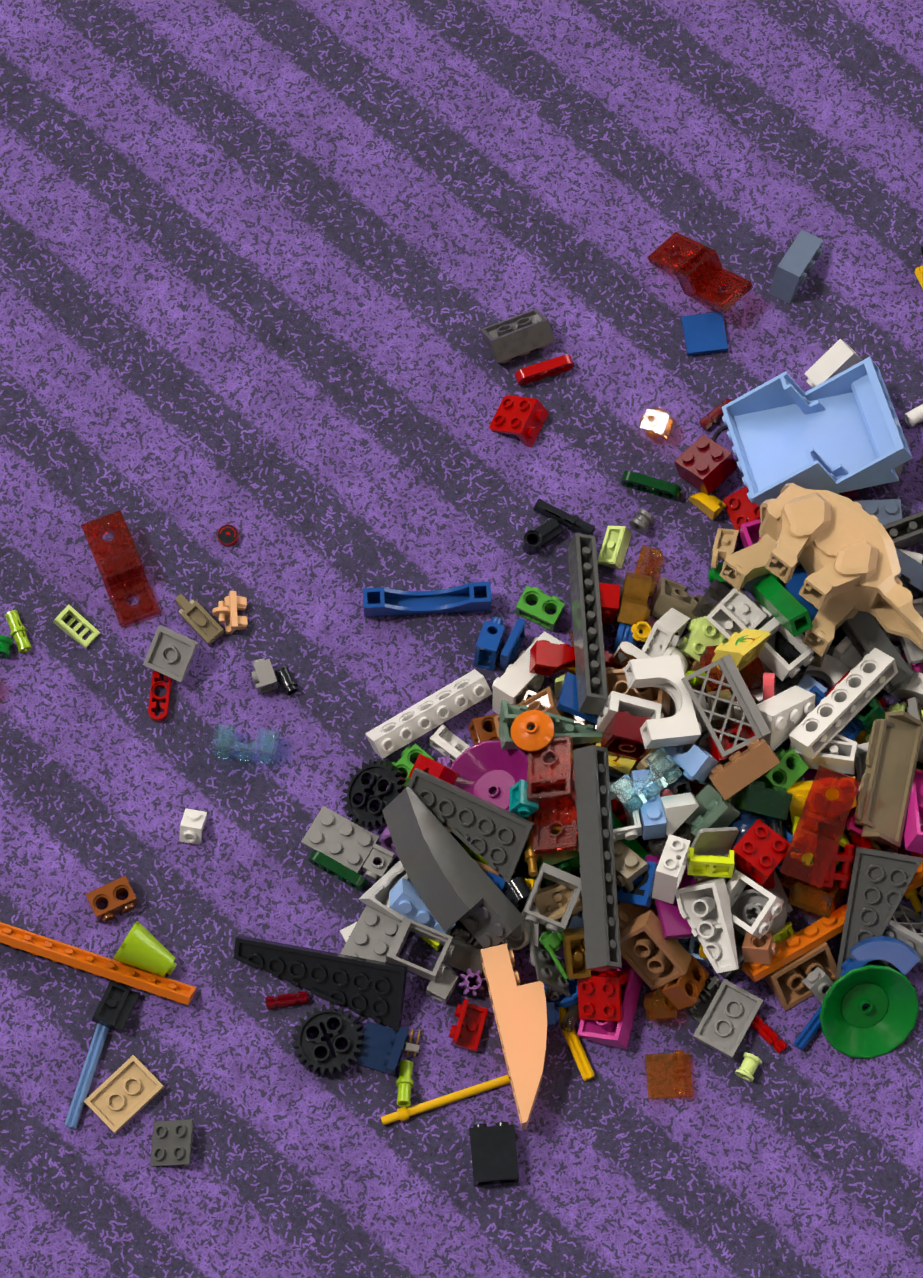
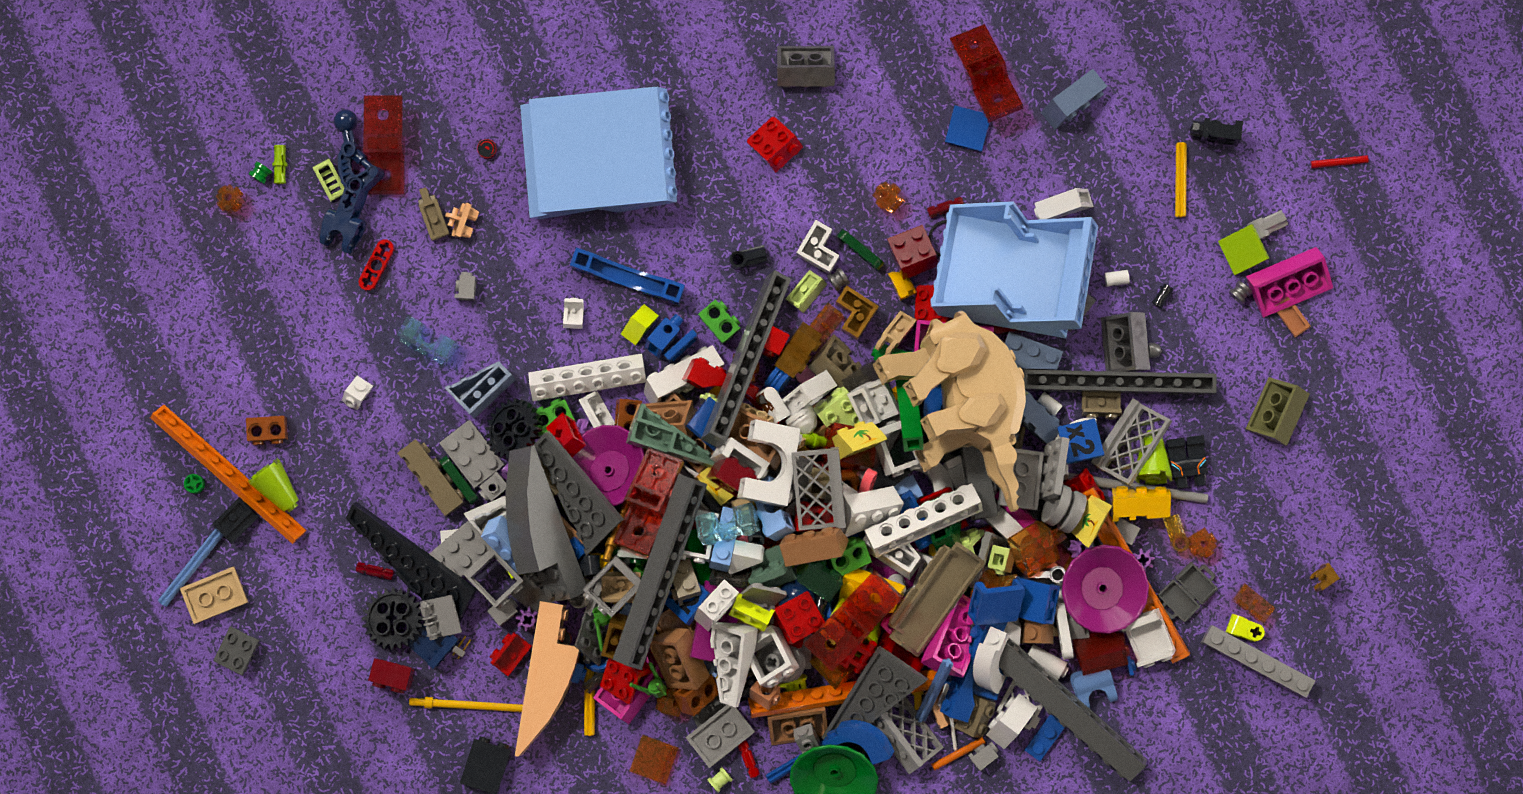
camera: 25 degrees right, 15 degrees up
(53, 982) = (192, 480): none -> green wheel
(110, 655) = (346, 217): none -> dark blue piece
(170, 653) = (394, 239): light grey tile -> none
(287, 681) = (483, 299): black pin -> none
(307, 877) = (431, 477): none -> dark tan wedge
(323, 768) = (482, 388): none -> sand blue wedge
(345, 488) = (598, 152): none -> light blue panel
(352, 1097) = (391, 674): none -> dark red brick
(379, 1014) = (440, 617): none -> light grey hinge
(386, 657) = (573, 313): none -> white bracket
(405, 1083) = (439, 679): lime pin -> none
(458, 644) = (639, 324): none -> neon yellow slope
(518, 800) = (618, 494): teal bracket -> none
(533, 739) = (658, 449): orange dish -> none
(545, 368) = (815, 106): red beam -> none
(564, 518) = (779, 255): black pin -> none
(609, 503) = (813, 249): none -> white brick
(640, 992) = (655, 686): none -> bright green plant
(644, 627) = (789, 387): yellow plate -> none
(674, 538) = (860, 311): none -> pearl gold brick

